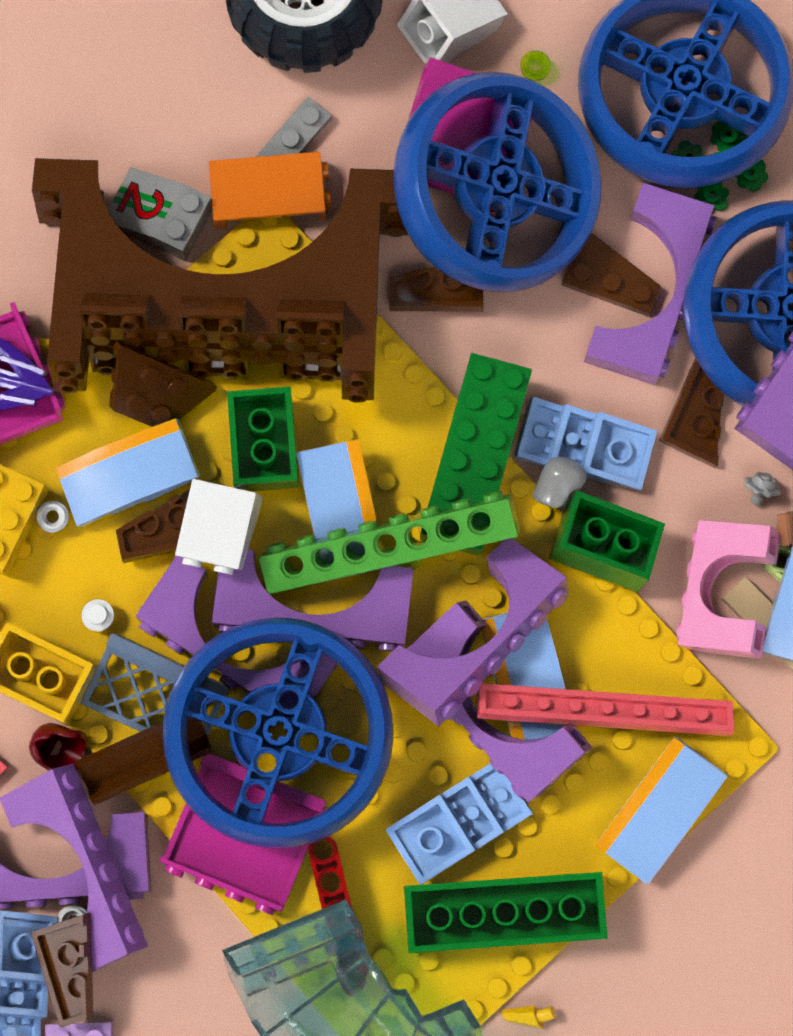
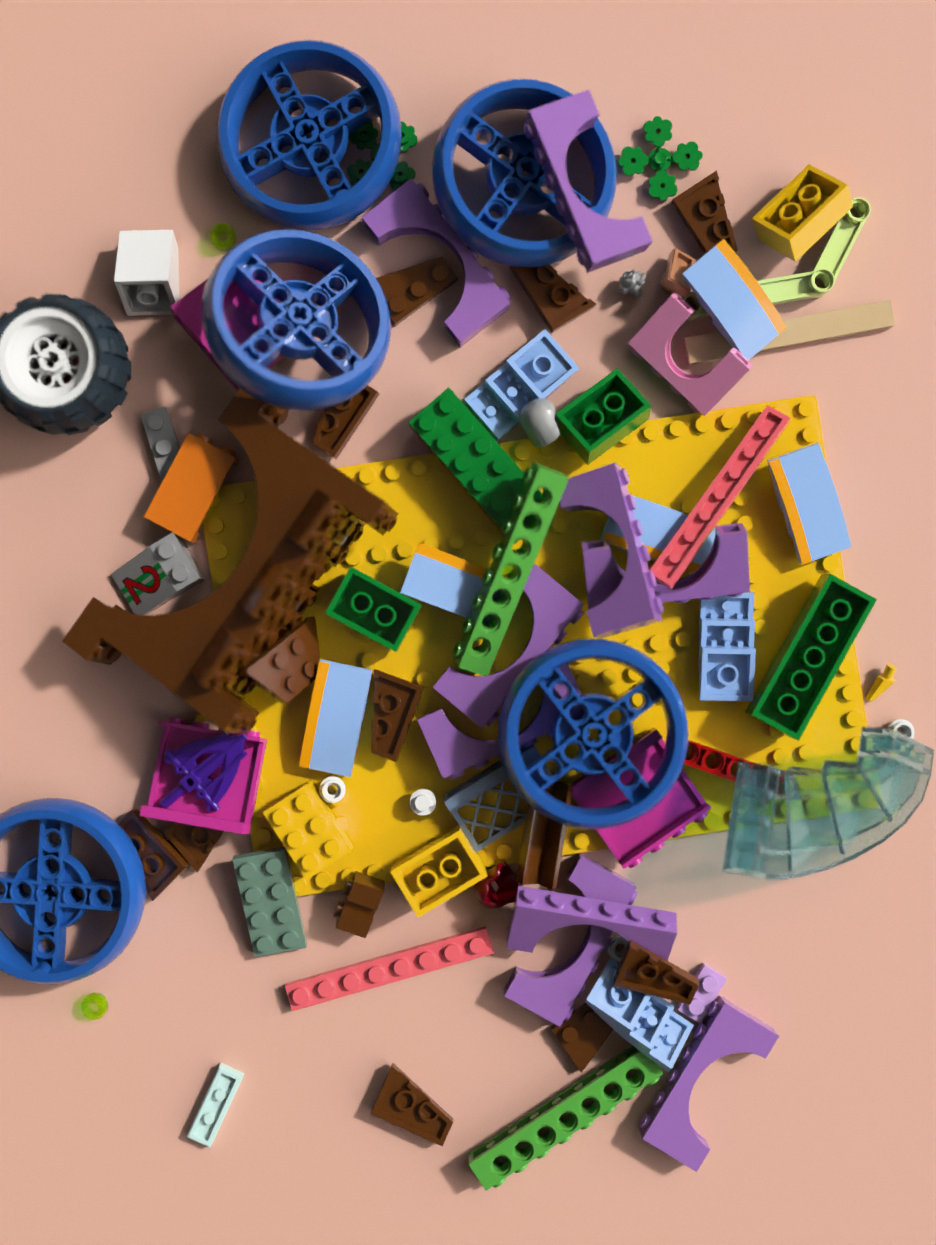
camera: 55 degrees left, 10 degrees up
(218, 526) = (418, 682): white slope -> none

